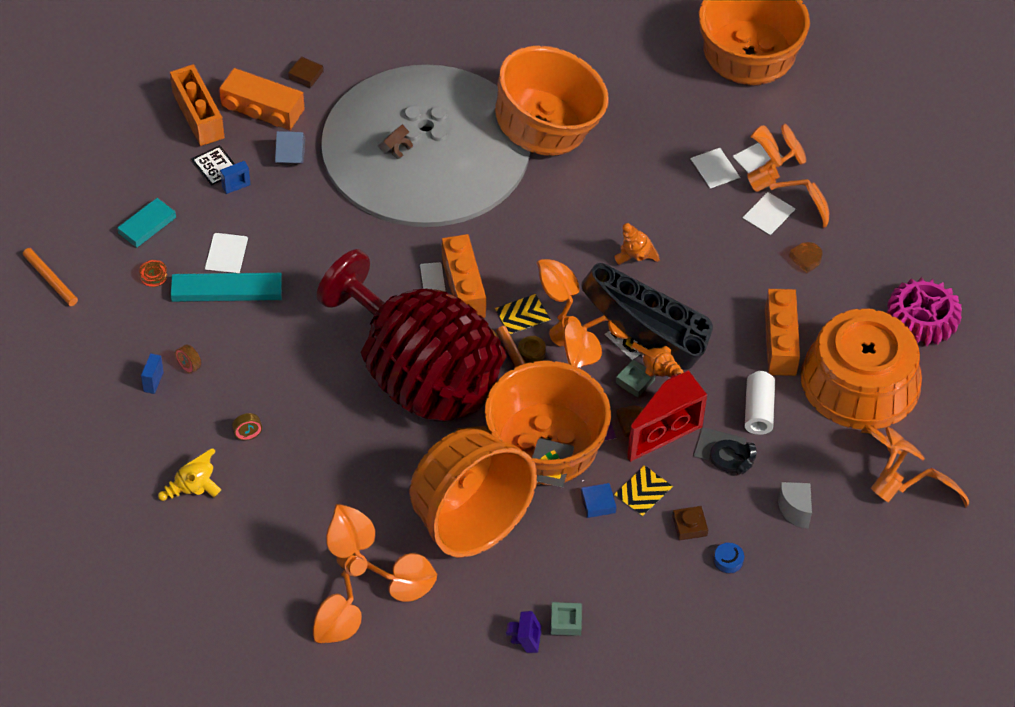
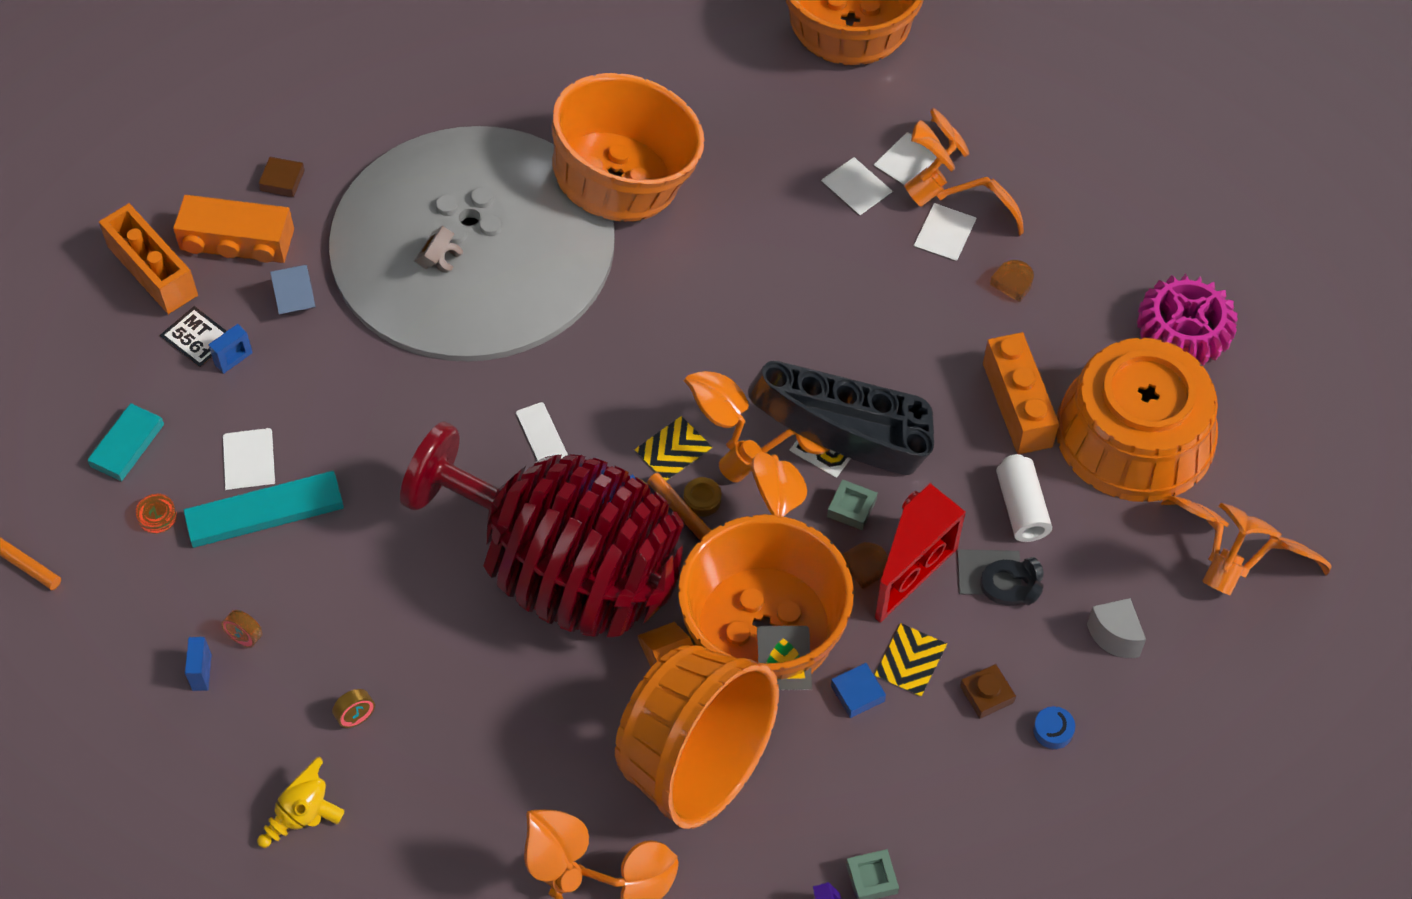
camera: 15 degrees left, 5 degrees up
(463, 272) = (581, 414): orange brick -> none
(636, 246) = (796, 320): orange piece -> none
(658, 361) = (880, 476): orange piece -> none

